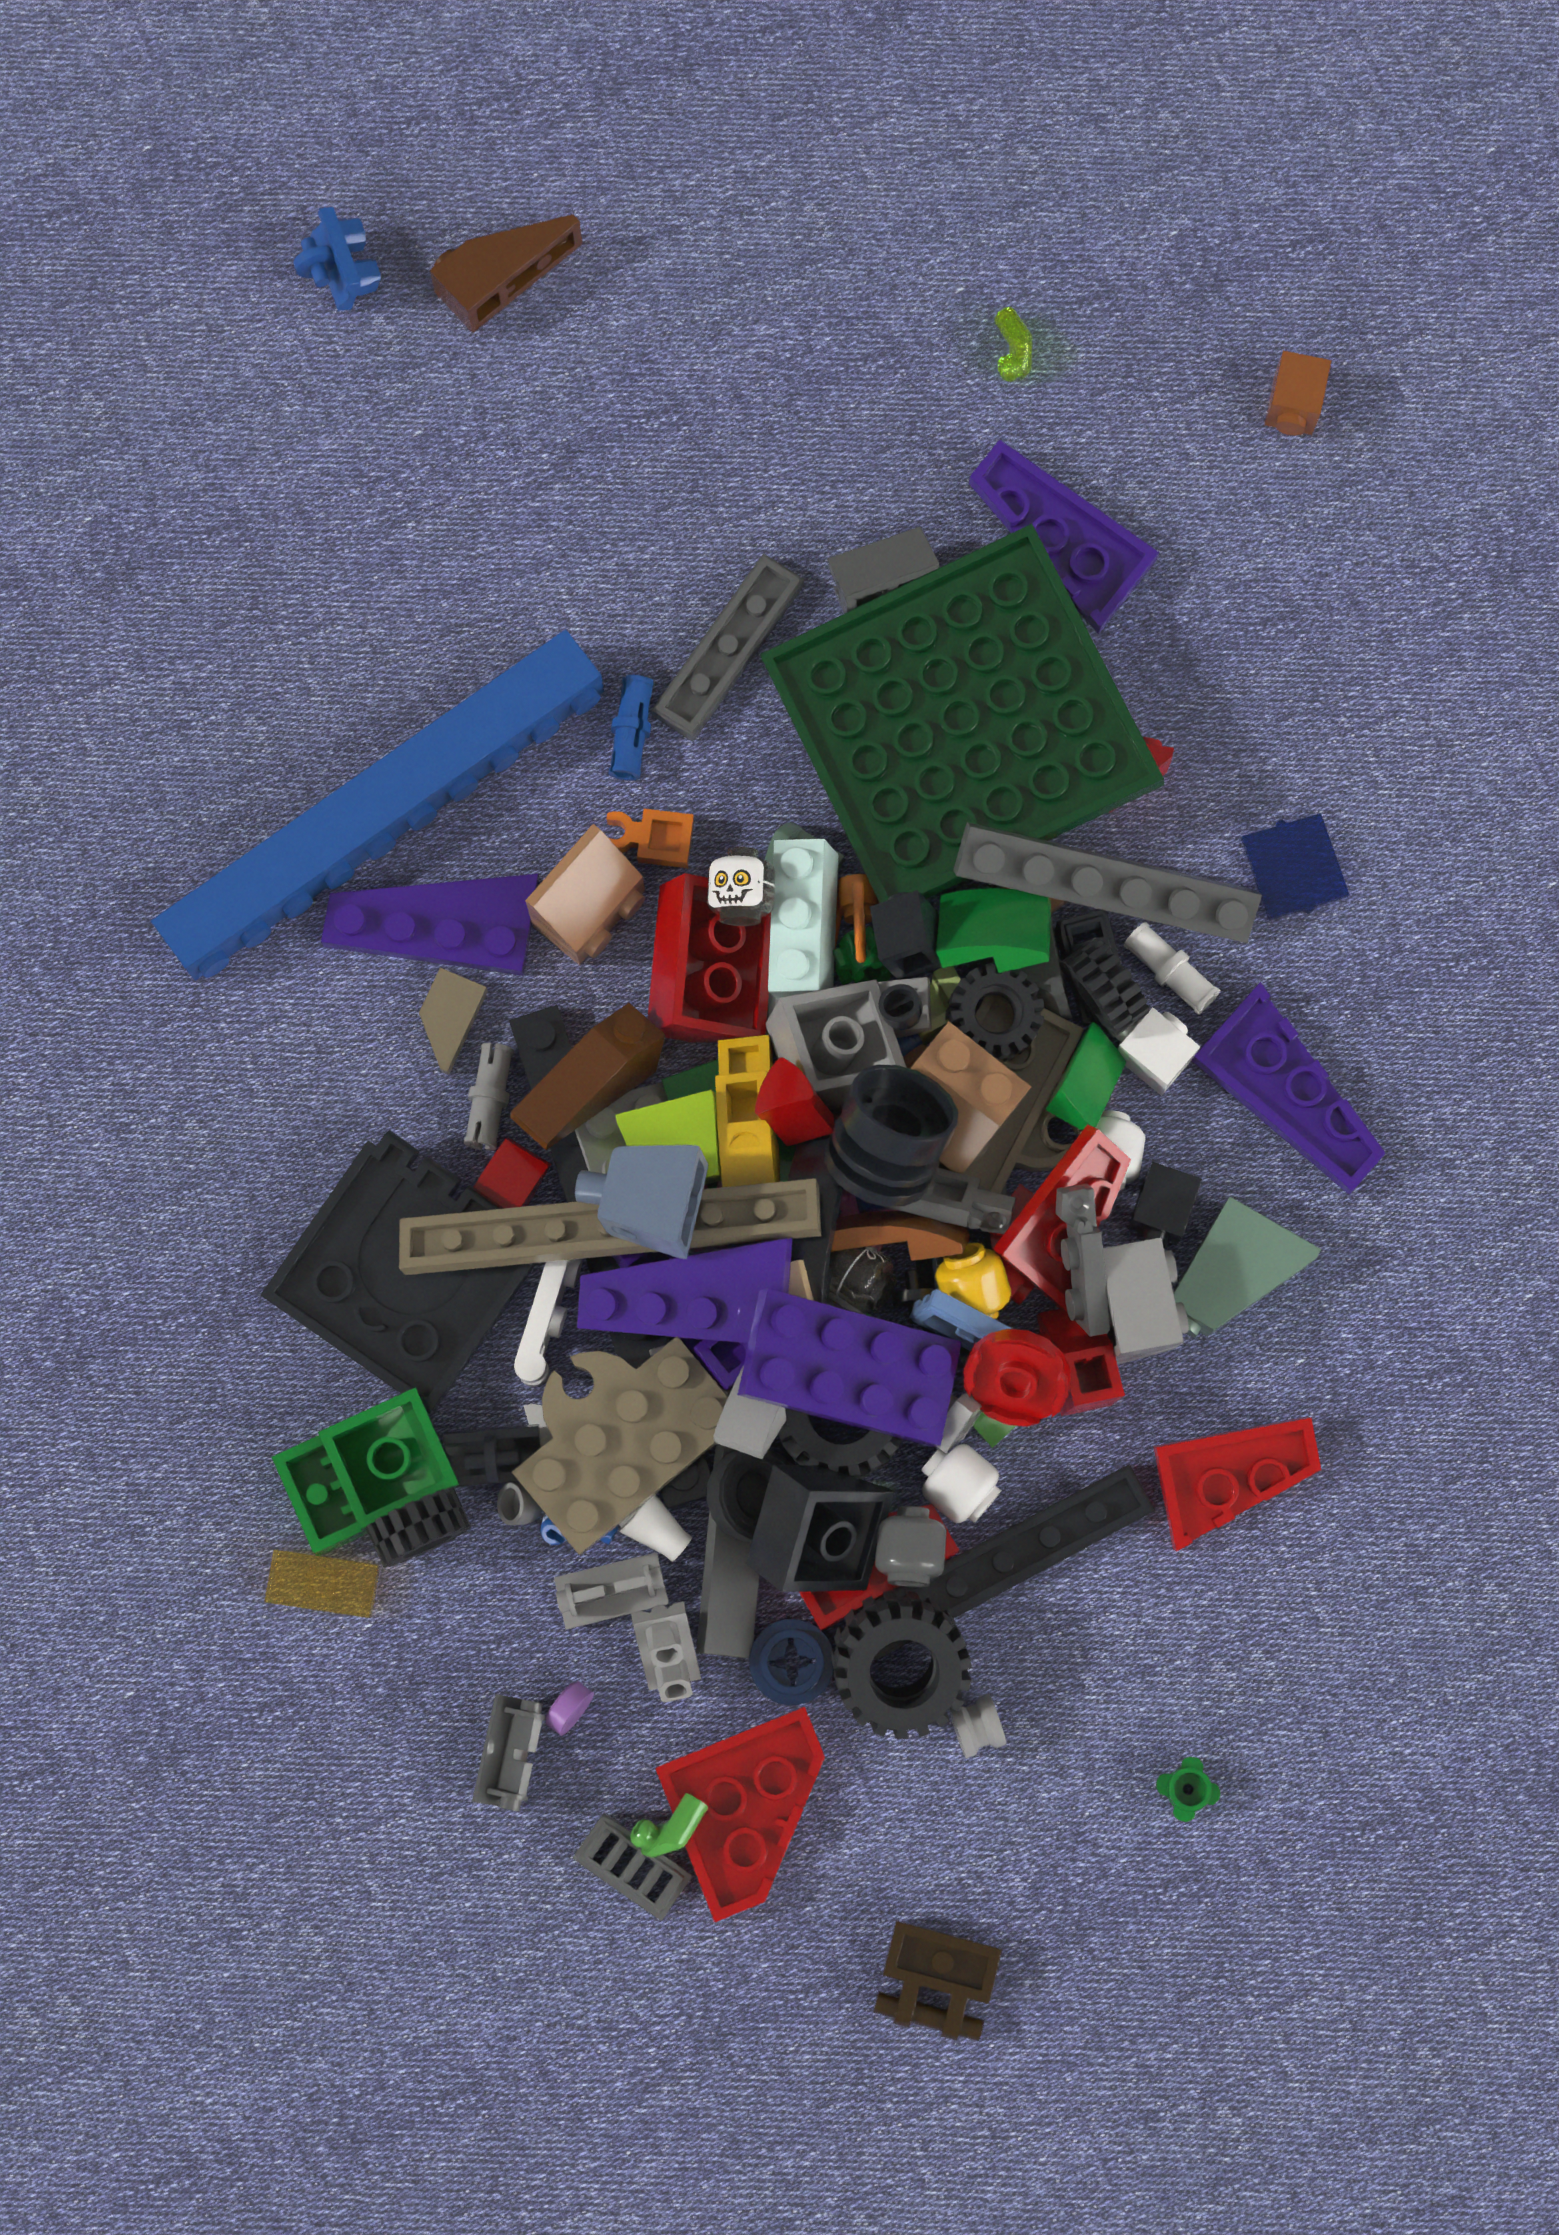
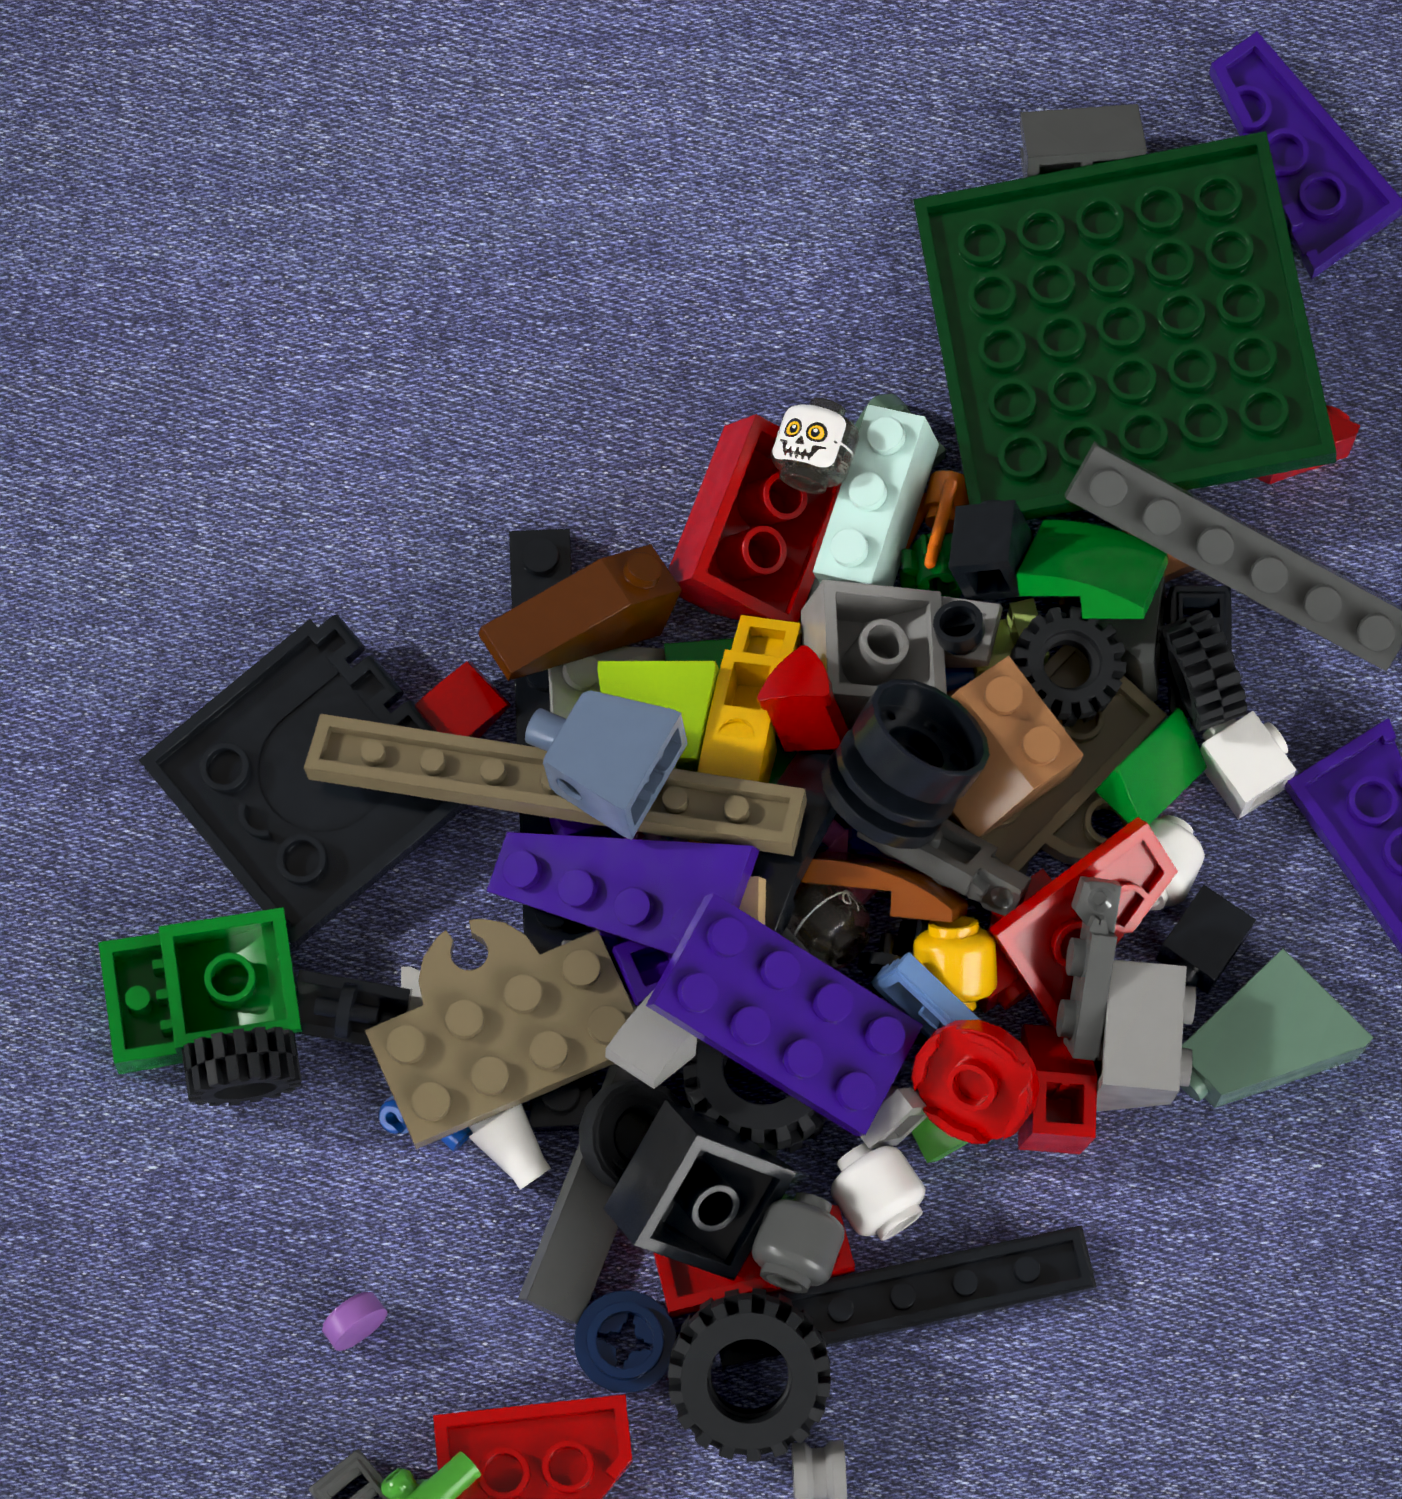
camera: 15 degrees right, 5 degrees down
(322, 1584) = (114, 1104): clear yellow plate -> none
(380, 806) = (433, 254): blue brick -> none
(446, 923) = (473, 406): dark purple wing -> none
(449, 1014) = (444, 508): dark tan tile -> none
(488, 1096) = (461, 610): light grey pin -> none
(504, 1765) = (268, 1350): dark grey hinge -> none
(516, 1505) = (361, 1076): light grey hinge -> none
(545, 1320) = (454, 874): white plate -> none
(586, 896) = (636, 414): medium nougat slope -> none
(610, 1590) = (440, 1203): light grey hinge -> none
(631, 727) = (742, 243): blue pin -> none
(660, 837) = (738, 374): orange plate -> none
(667, 1650) = (484, 1284): light grey hips -> none
(728, 647) = (879, 184): dark grey tile -> none
(1171, 968) = (1290, 676): white pin -> none
(1228, 1472) = (1195, 1268): red wing -> none

